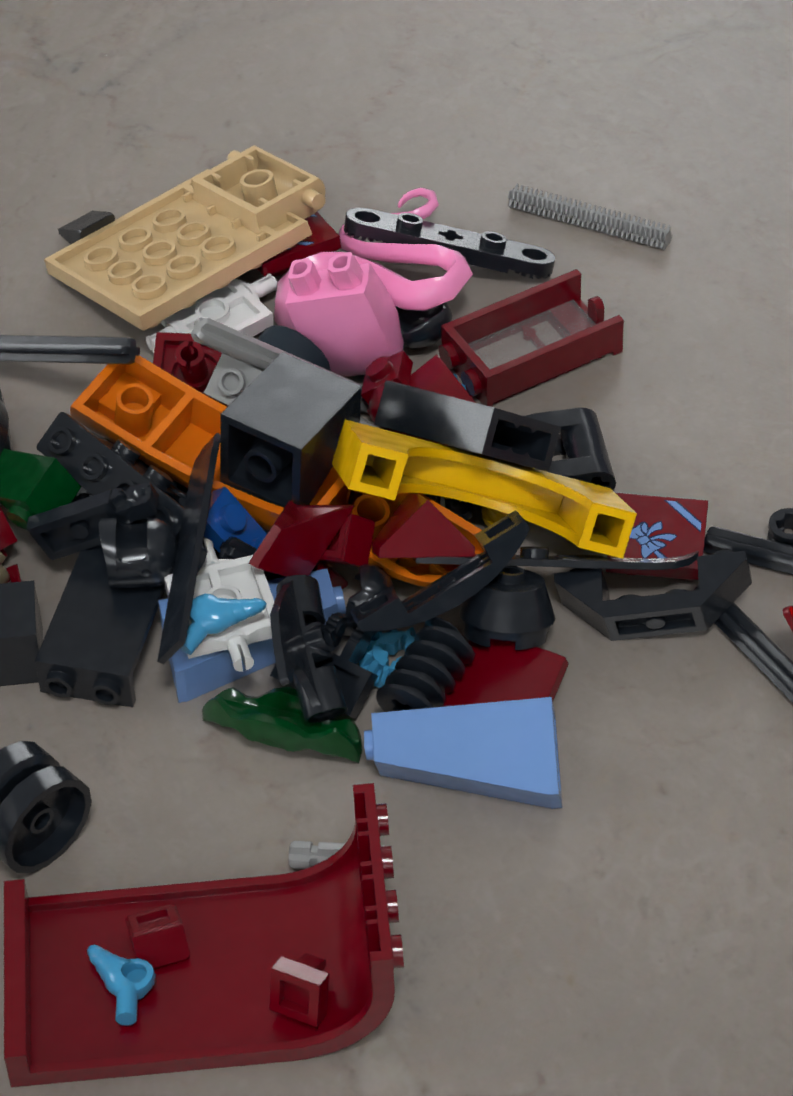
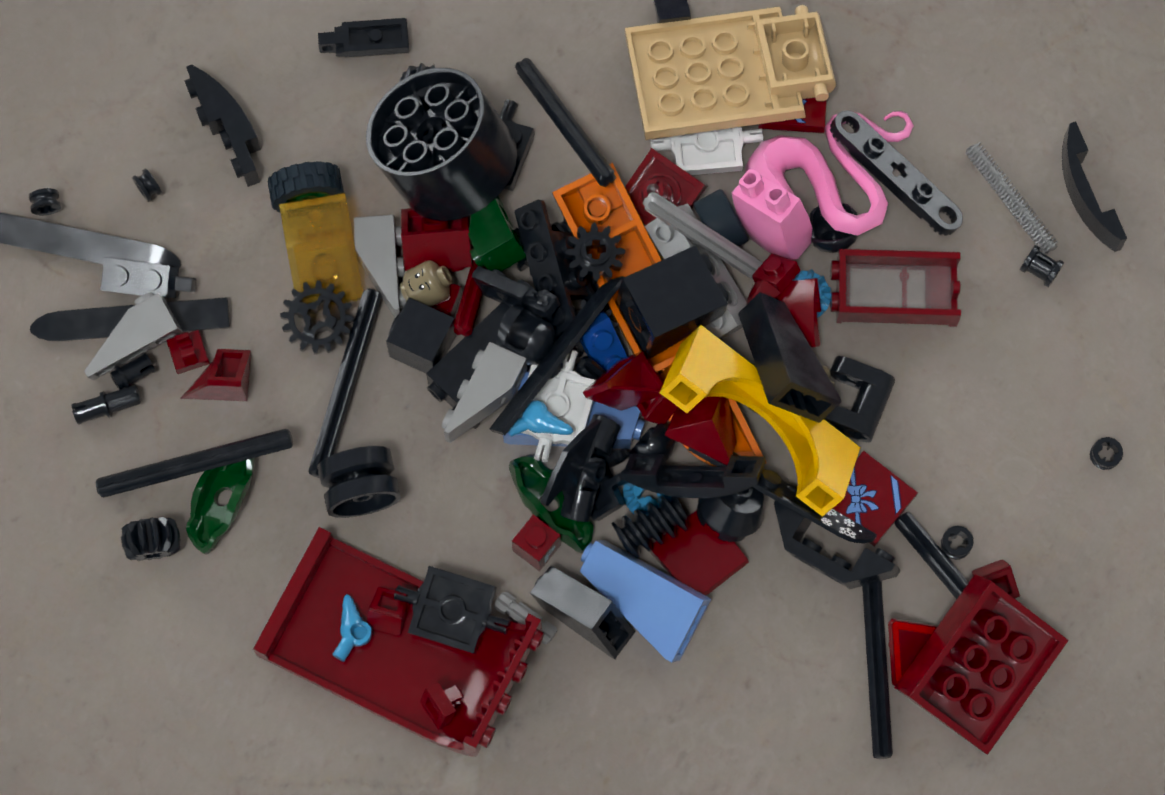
camera: 30 degrees right, 25 degrees up
(38, 568) = (468, 305): none -> dark red axle
(128, 628) = (490, 387): none -> light grey slope
(164, 434) = (584, 260): none -> black gear
(242, 881) = (452, 609): none -> black plate
(296, 767) = (536, 542): none -> dark red brick
(424, 798) = (583, 611): none -> slope
(663, 178) = (1103, 225): none -> black slope
(671, 252) = (1041, 266): none -> black bush

